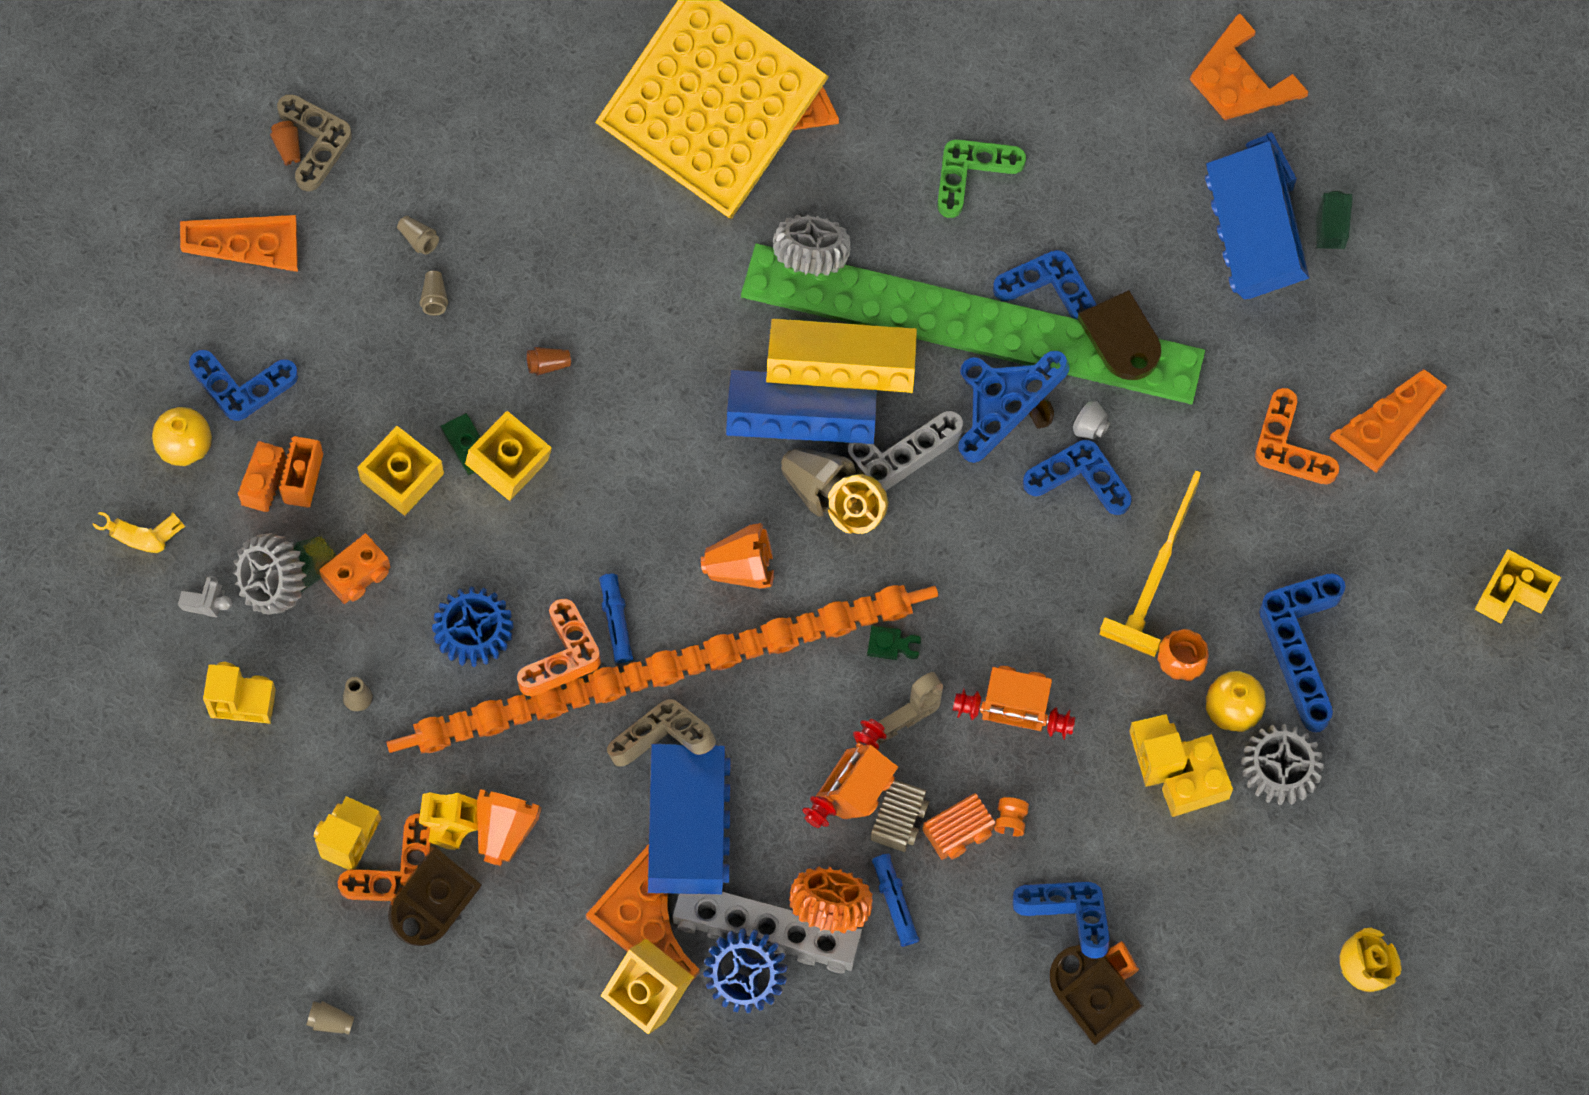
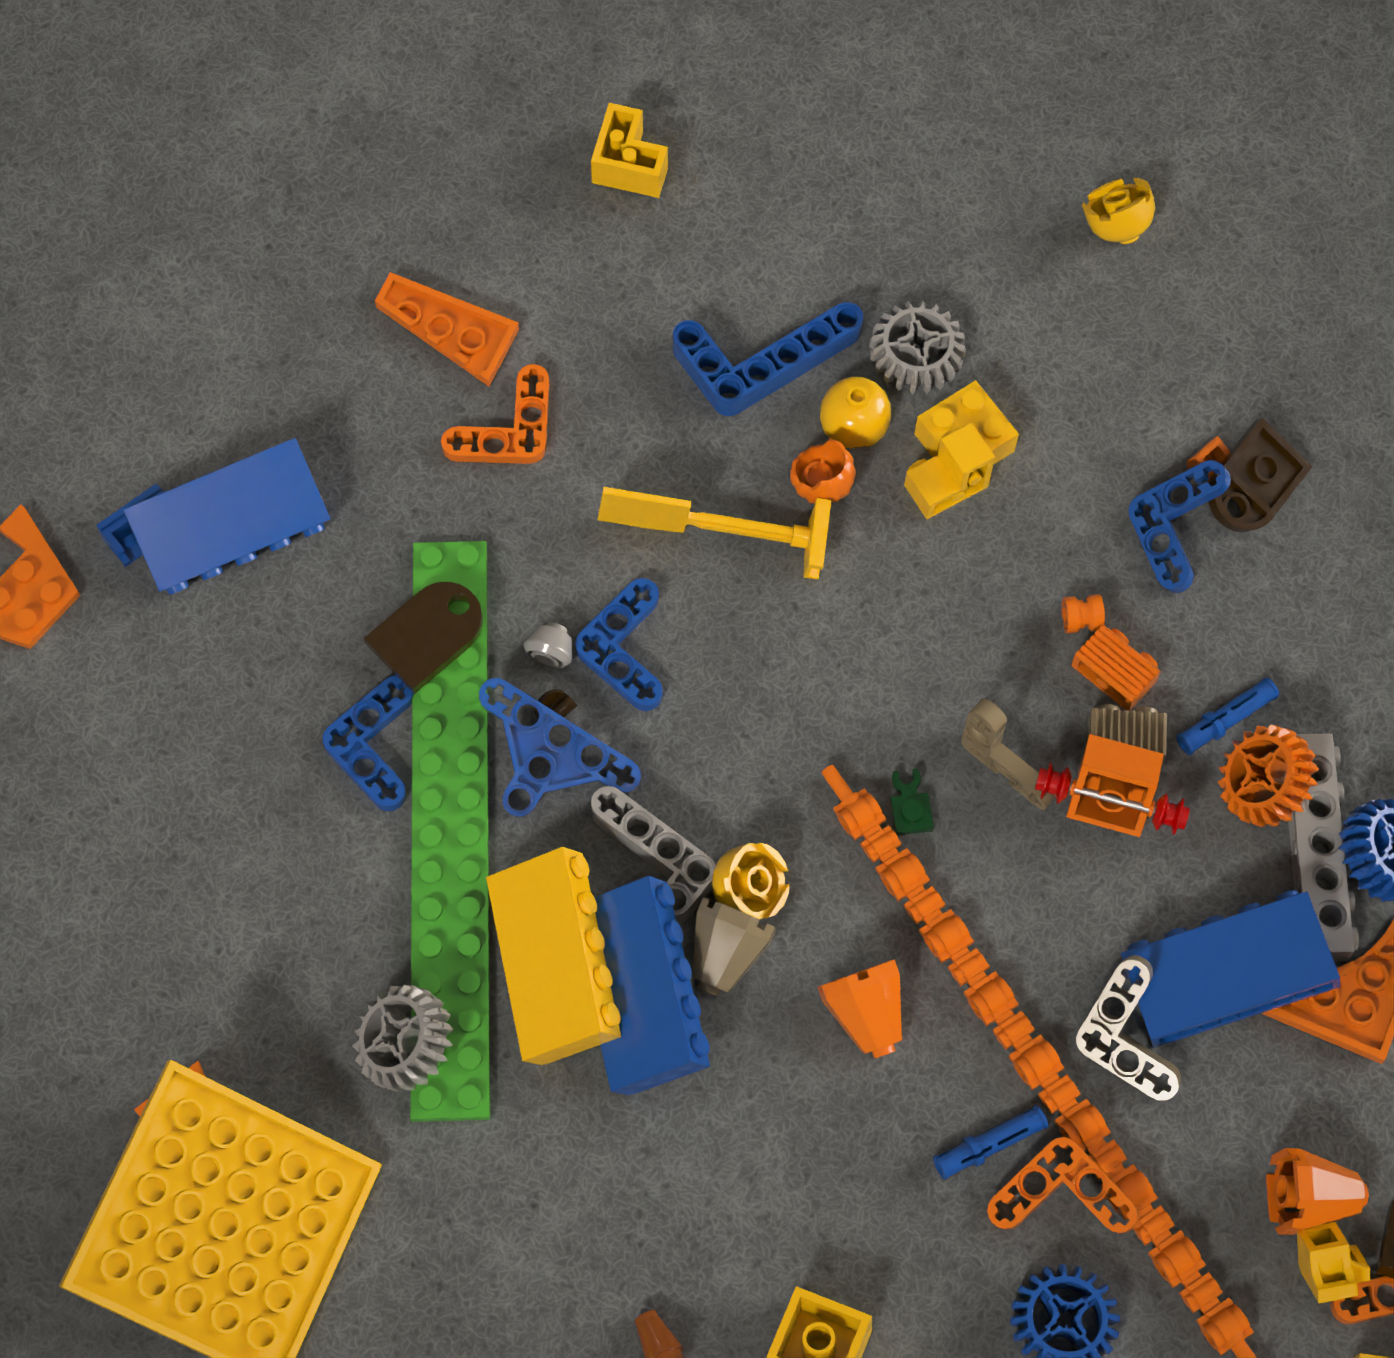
camera: 105 degrees left, 0 degrees up
(960, 165) = (229, 890): bright green beam -> none
(1016, 701) = (946, 635): orange brick -> none
(1333, 220) = (203, 431): clear green slope -> none

